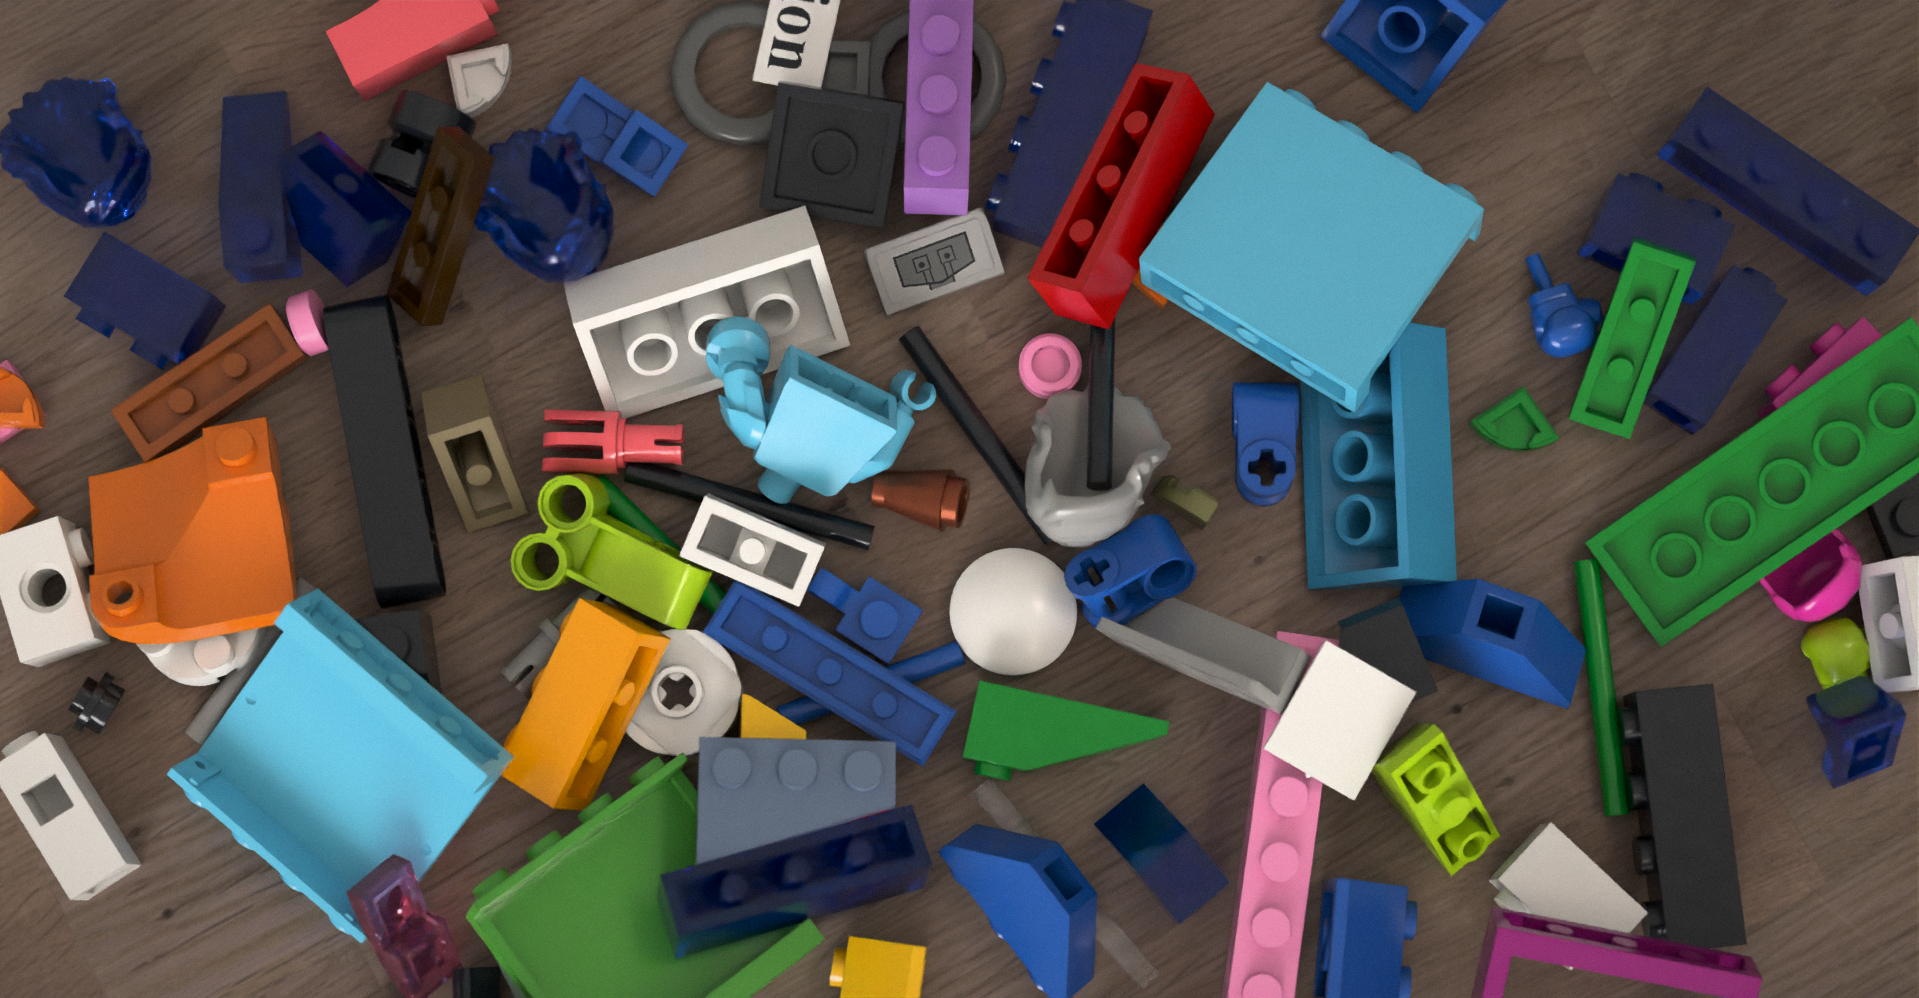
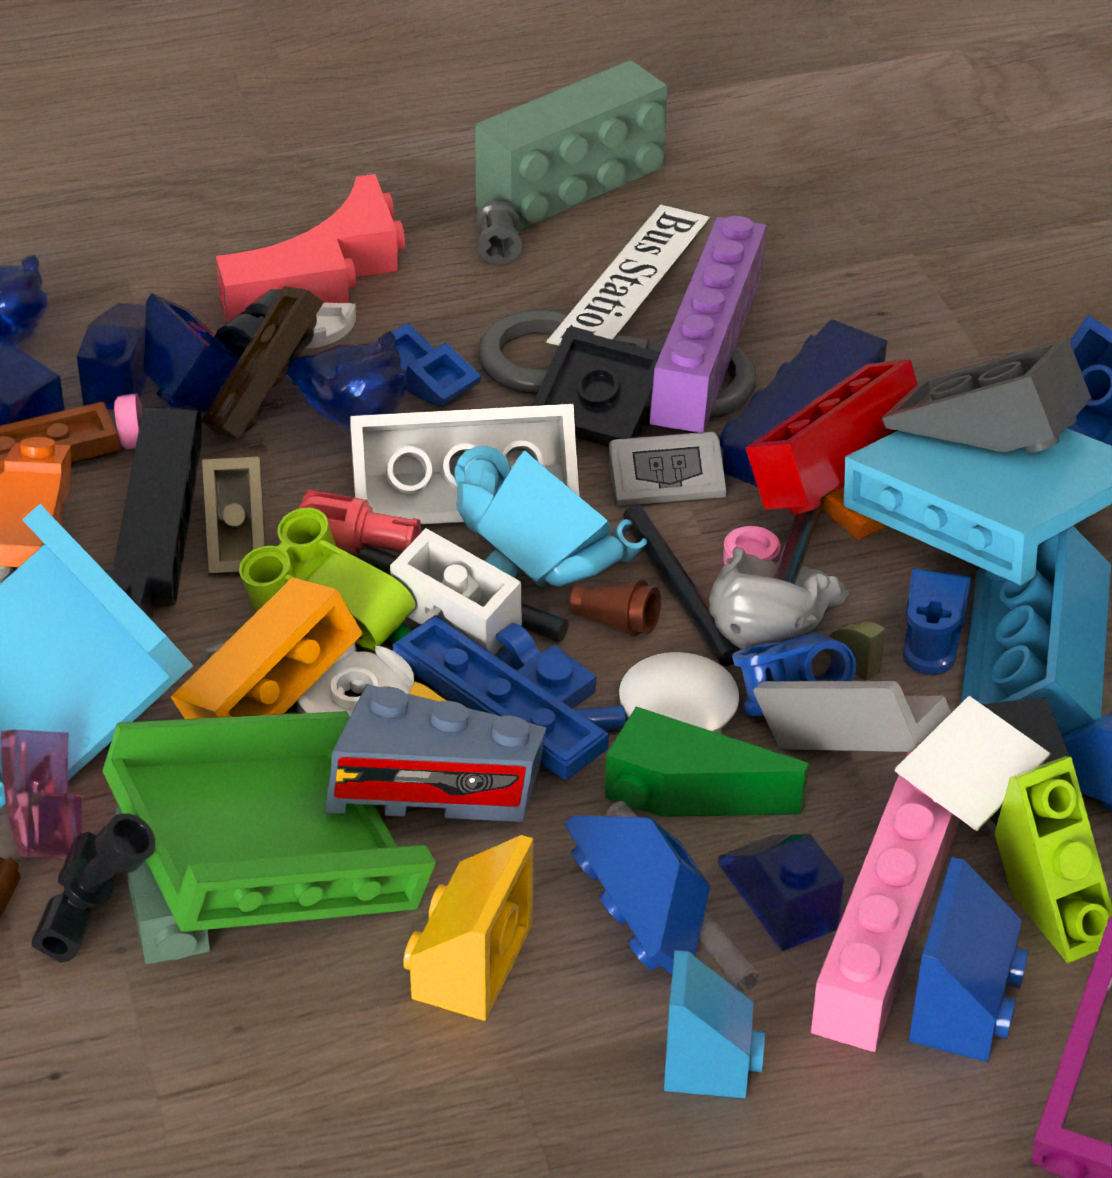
camera: 10 degrees right, 40 degrees down
(793, 881) = (398, 801): clear blue brick -> none
(1292, 147) = (998, 402): none -> dark grey slope

